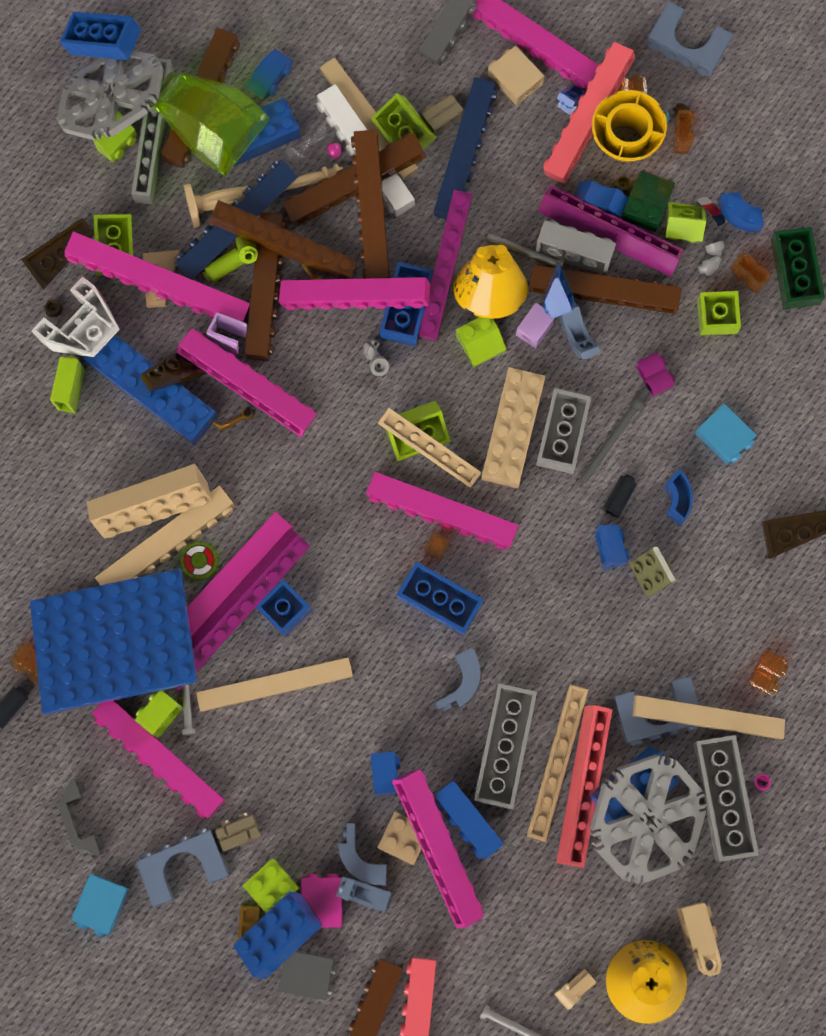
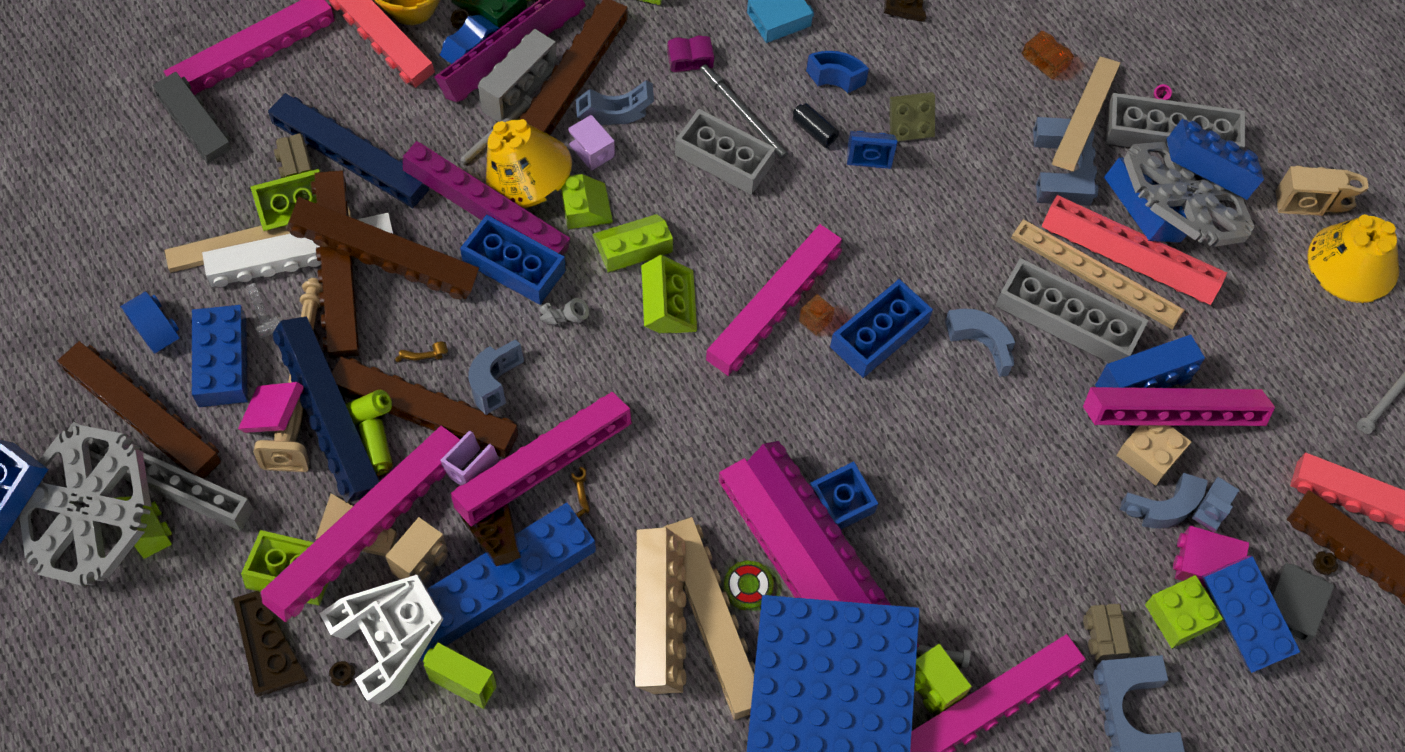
camera: 80 degrees left, 15 degrees down
(146, 324) = (417, 552): none -> tan brick
(210, 118) = (179, 391): clear neon green windscreen -> none
(224, 186) = (271, 407): none -> dark pink tile
(248, 918) = (1218, 655): pearl gold tile -> none
(274, 684) = (931, 544): tan tile -> none
(282, 241) = (378, 361): reddish brown brick -> none
(302, 318) = (485, 371): none -> sand blue arch
(334, 150) = (283, 283): dark pink hinge -> none
(355, 293) = (480, 303): dark pink brick -> none
(355, 994) = (1321, 567): none -> dark brown plate
(384, 771) = (1075, 442): blue brick -> none
(428, 447) = (698, 282): tan plate -> none
(458, 387) = (634, 242): none -> lime slope
(513, 428) = (702, 199): tan brick -> none
(515, 75) = (282, 74): tan brick -> none
(558, 295) = (569, 99): slope -> none
(569, 99) = (340, 36): blue slope -> none
(571, 992) = (1355, 332): tan piece -> none
(694, 836) = (1215, 158): none -> blue brick

